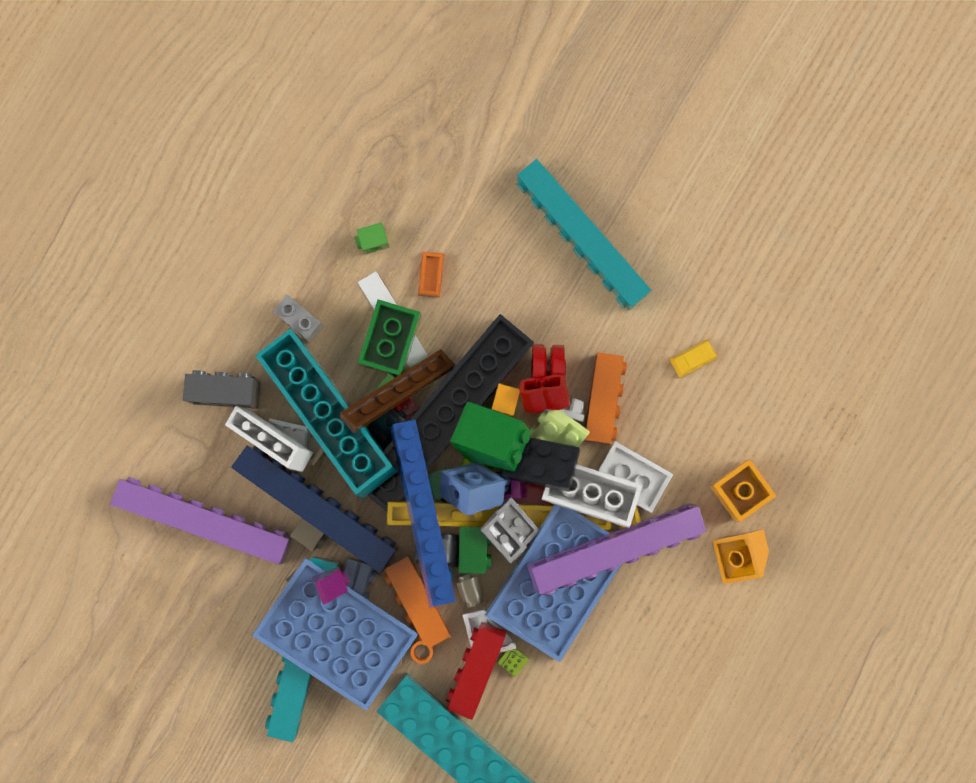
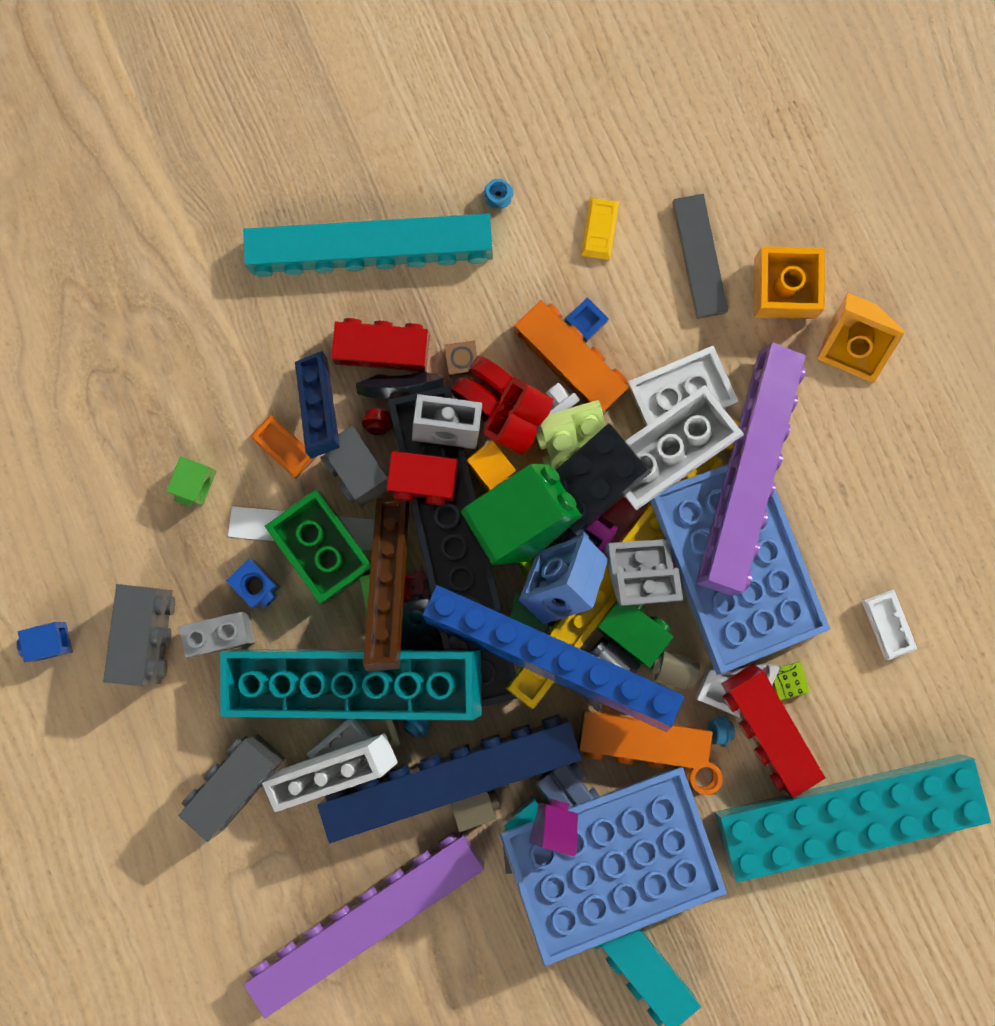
camera: 45 degrees left, 0 degrees up
(223, 226) = (44, 642): none -> blue brick
(266, 276) = (139, 635): none -> dark grey brick
(329, 468) = (417, 727): none -> dark azure plate
(341, 308) = (242, 577): none -> blue brick
(449, 325) = (357, 467): none -> dark grey brick
(455, 642) = (722, 730): none -> dark azure plate
(467, 276) = (316, 405): none -> dark blue tile
(470, 366) = (422, 477): none -> red brick
(484, 316) = (377, 421): none -> red plate
(507, 304) = (383, 385): none -> black tile
(511, 356) = (446, 421): none -> light grey brick
(529, 285) = (380, 345): none -> red brick
(557, 335) = (460, 357): none -> medium nougat tile
(588, 694) = (889, 625): none -> white plate
(633, 391) = (587, 319): none -> blue plate
(673, 281) = (495, 186): none -> dark azure plate
(721, 428) = (700, 256): none -> dark grey tile

